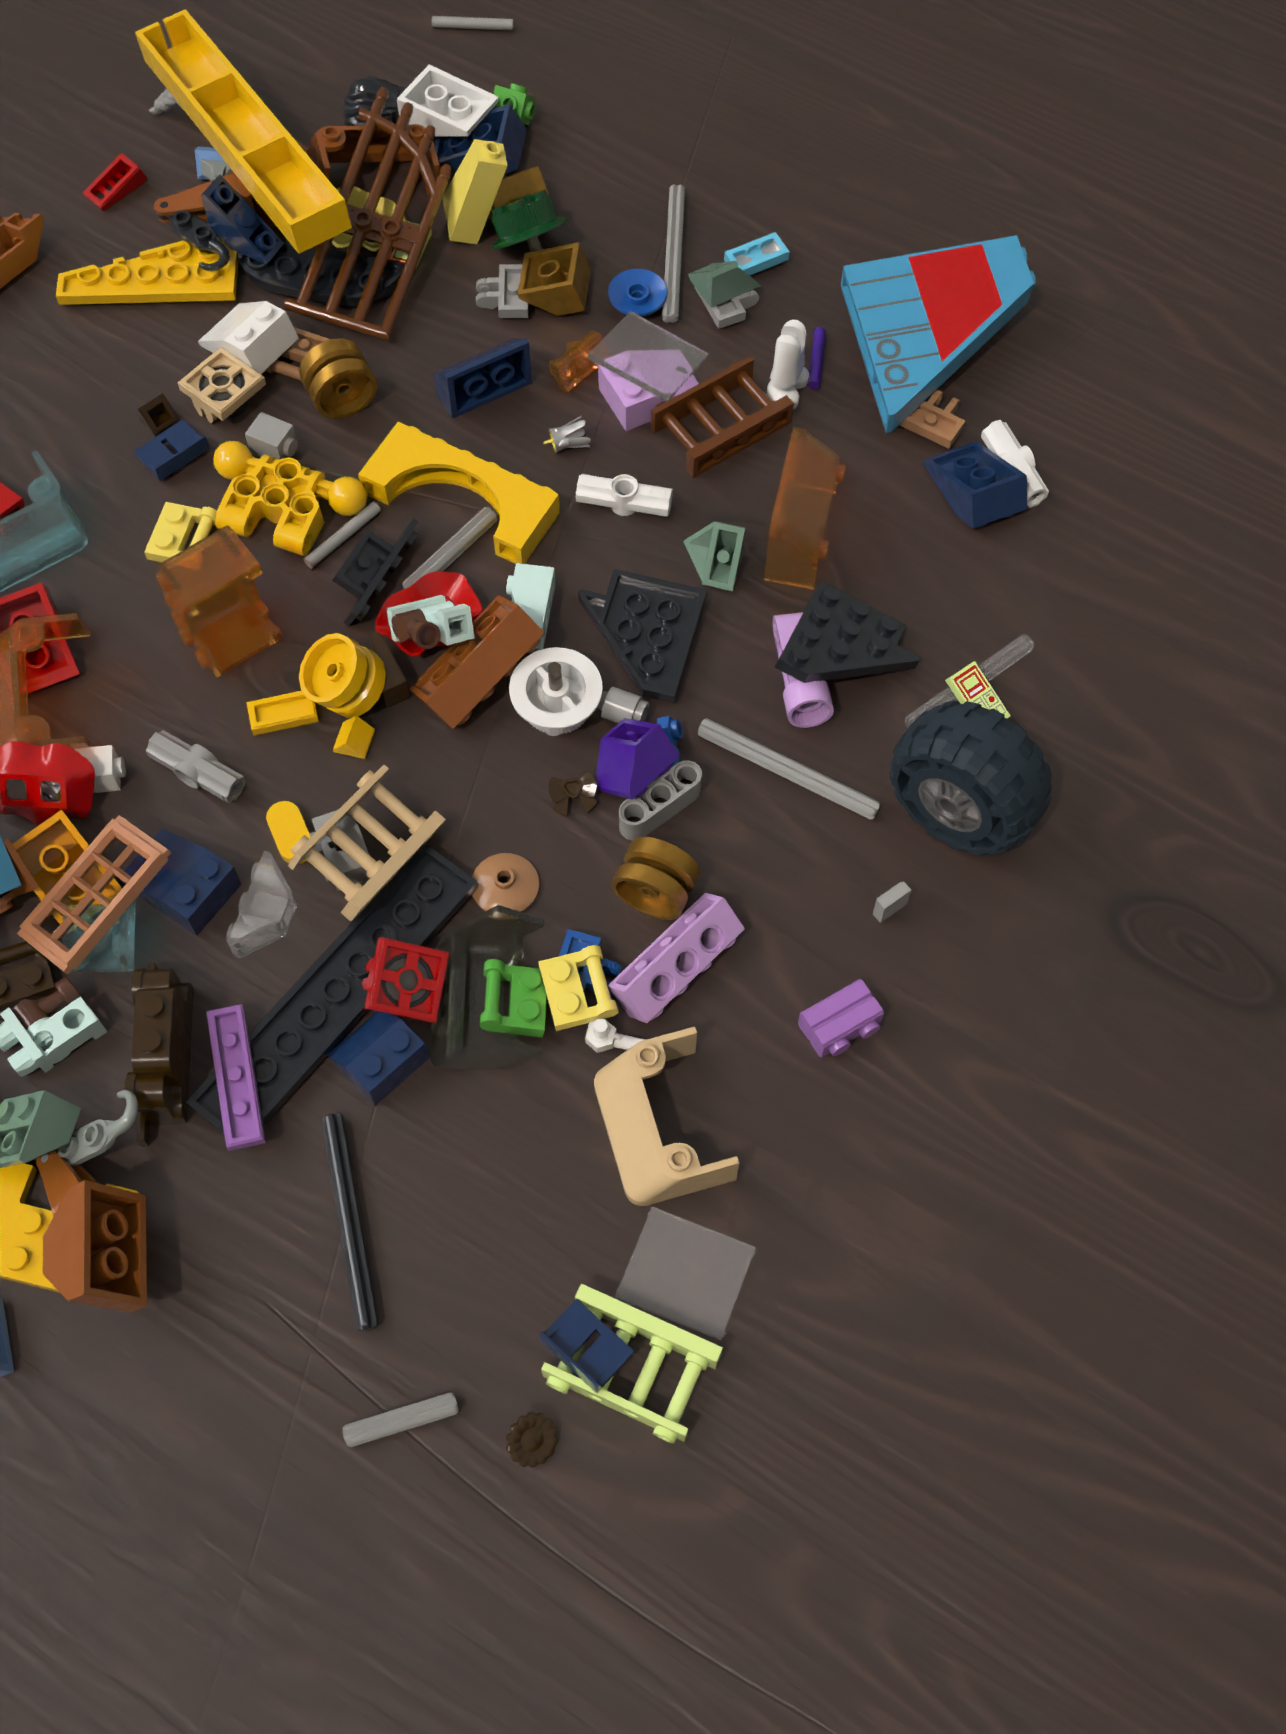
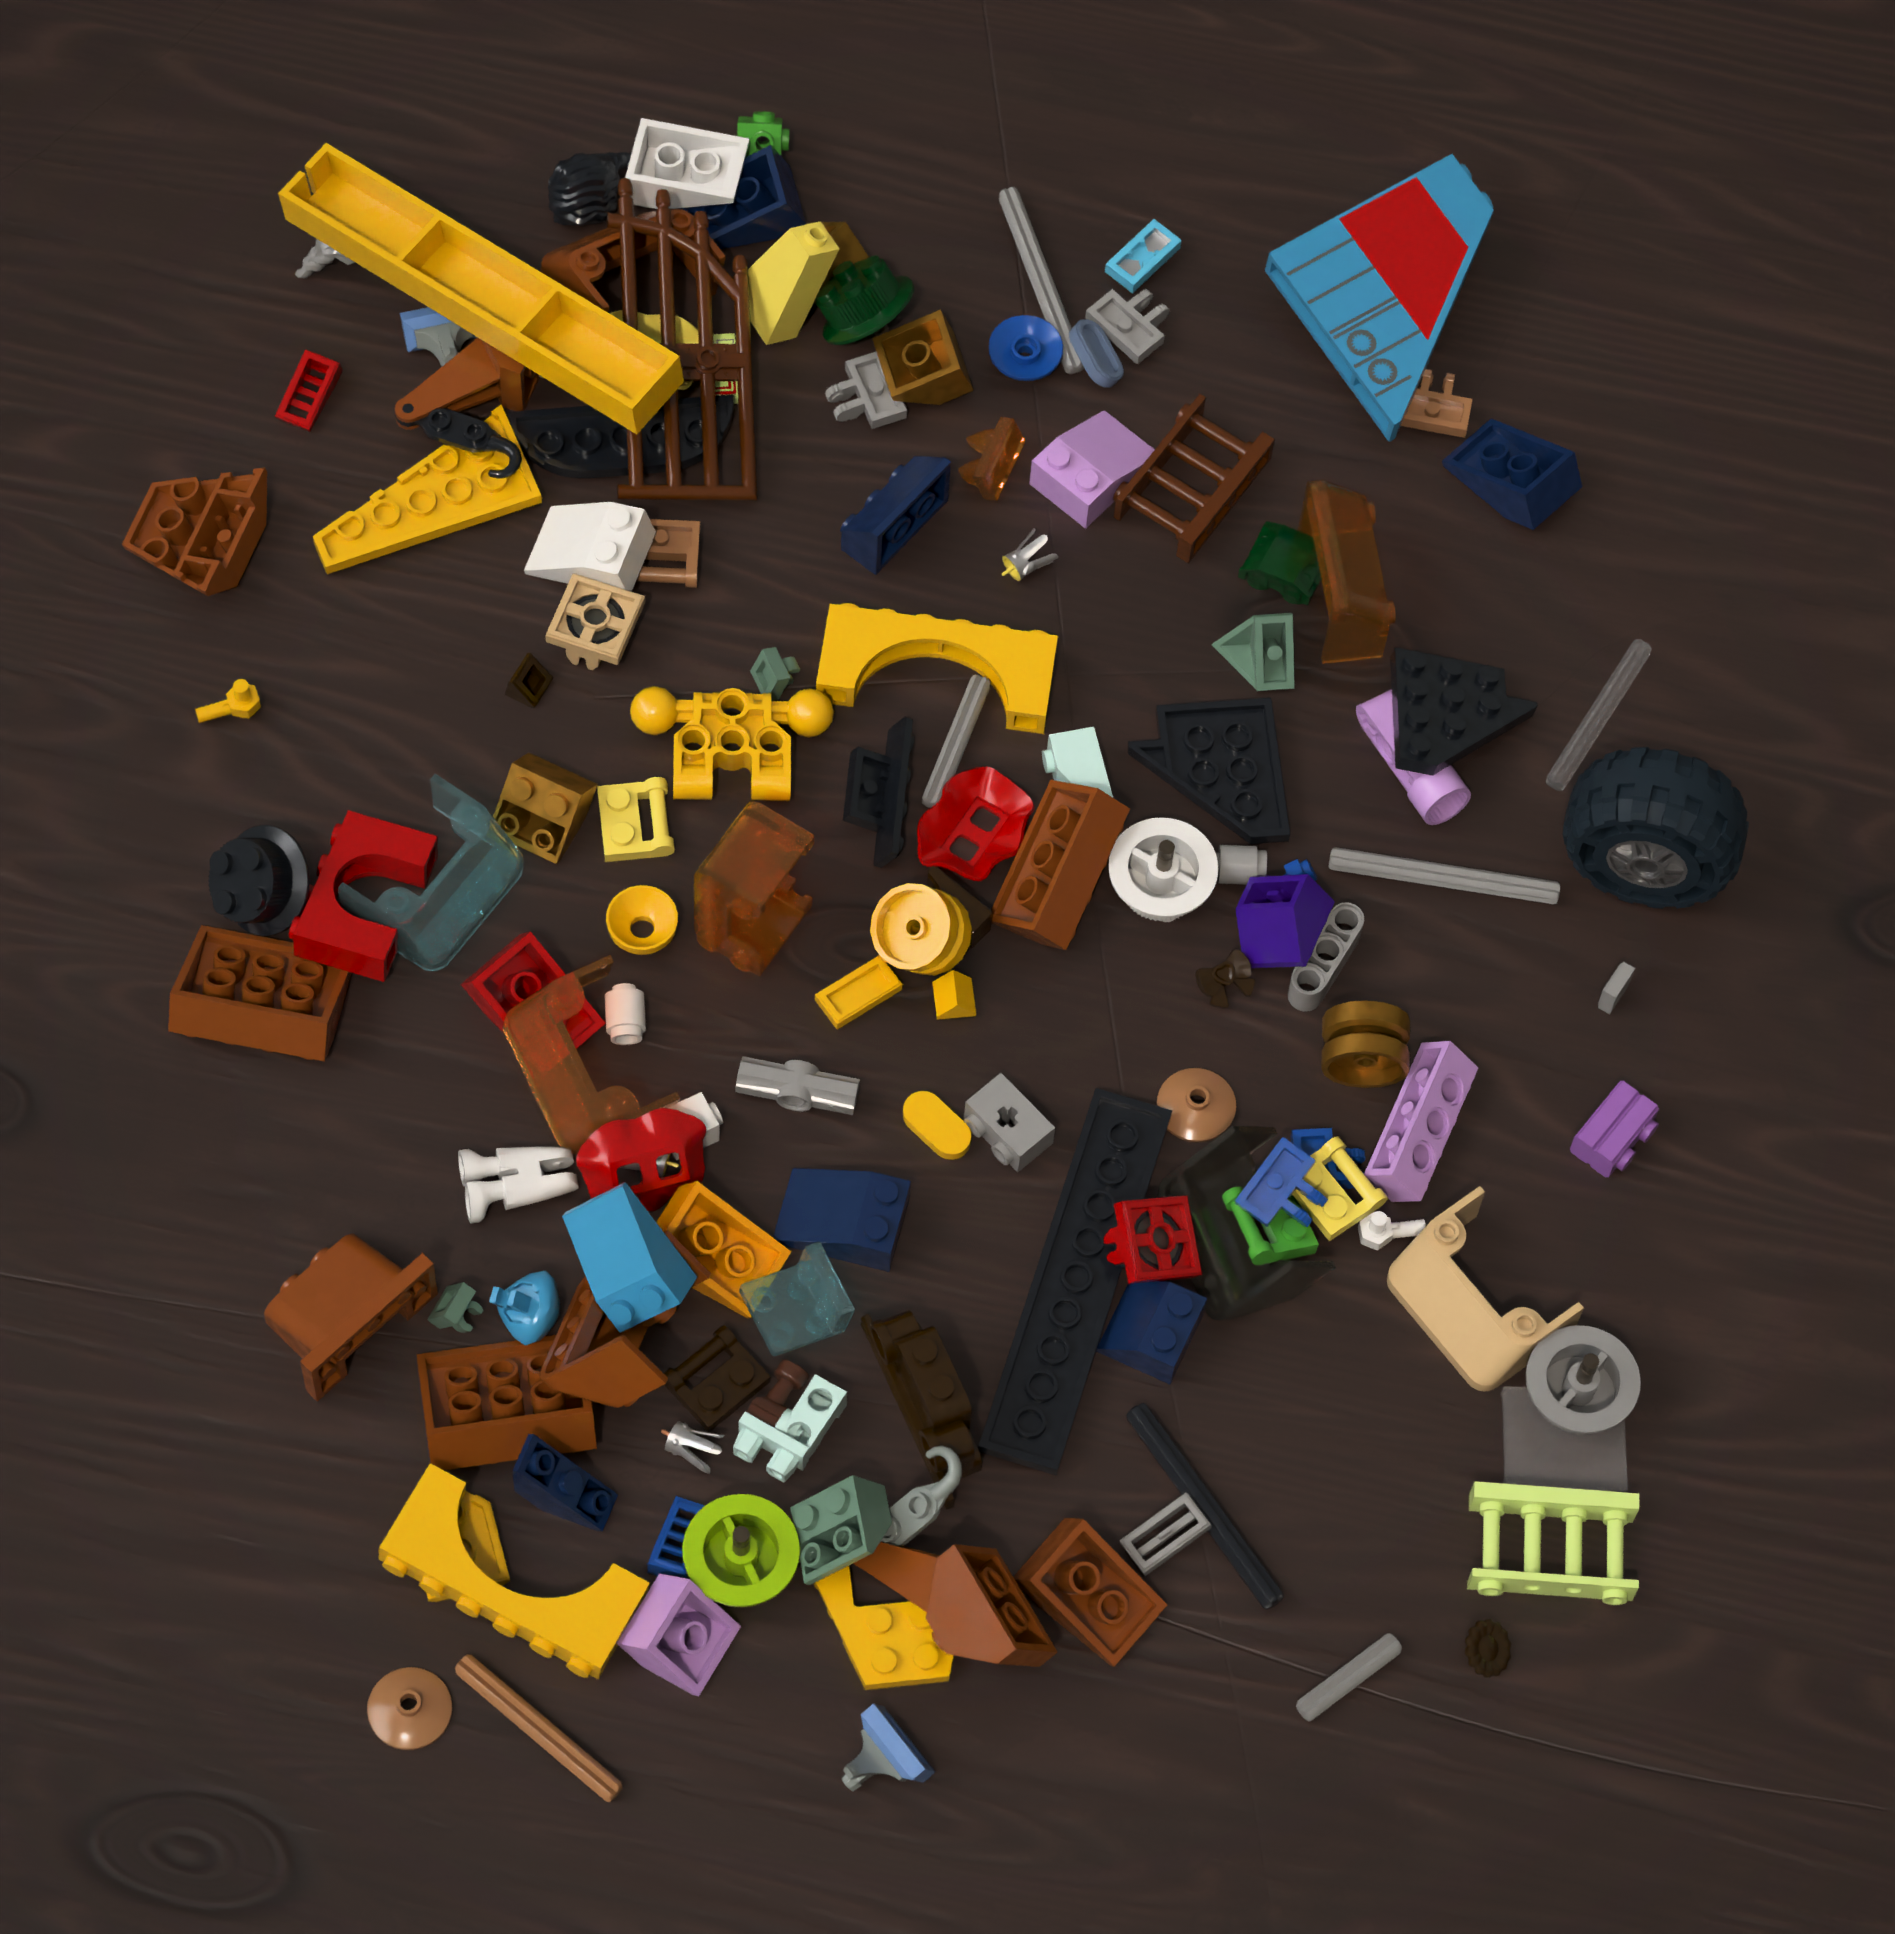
camera: 25 degrees left, 0 degrees up
(49, 944) = (753, 1331): nougat piece -> none
(95, 671) = (625, 1014): none -> white brick
(116, 502) = (543, 806): none -> pearl gold slope
(136, 597) = (642, 904): none -> yellow piece
(182, 439) = (575, 703): dark blue piece -> none
(215, 1261) = (1089, 1590): none -> dark orange slope
(235, 1077) = (1021, 1401): medium lavender tile -> none
(238, 223) = (521, 409): dark blue slope -> none
(263, 910) = (956, 1214): clear slope -> none
(271, 437) = (689, 669): light grey brick -> none
(309, 1246) = (1175, 1546): none -> light grey tile
(337, 461) = (773, 673): none -> sand green tile
(338, 378) = (734, 571): pearl gold wheel -> none
(342, 535) = (821, 761): light grey bar -> none
(378, 872) = (1078, 1104): tan fence -> none
(430, 622) = (994, 835): light aqua hips -> none
(472, 23) = (645, 30): light grey bar -> none
(524, 966) = (1276, 1182): none -> blue hinge
(571, 1333) = (1527, 1543): dark blue piece -> none
(624, 495) = (1148, 609): white piece -> none
(648, 356) = (1083, 430): clear piece -> none
(689, 311) = (1096, 353): none -> sand blue tile
(713, 1227) = (1583, 1379): none -> light grey piece
(722, 282) = (1120, 307): sand green slope -> none
(756, 495) = (1284, 562): none -> dark green slope
(789, 362) = (1249, 395): white piece -> none
(816, 358) = (1267, 367): dark purple piece -> none
(972, 686) = (1613, 725): yellowish green tile -> none
(1003, 443) = (1526, 415): white piece -> none

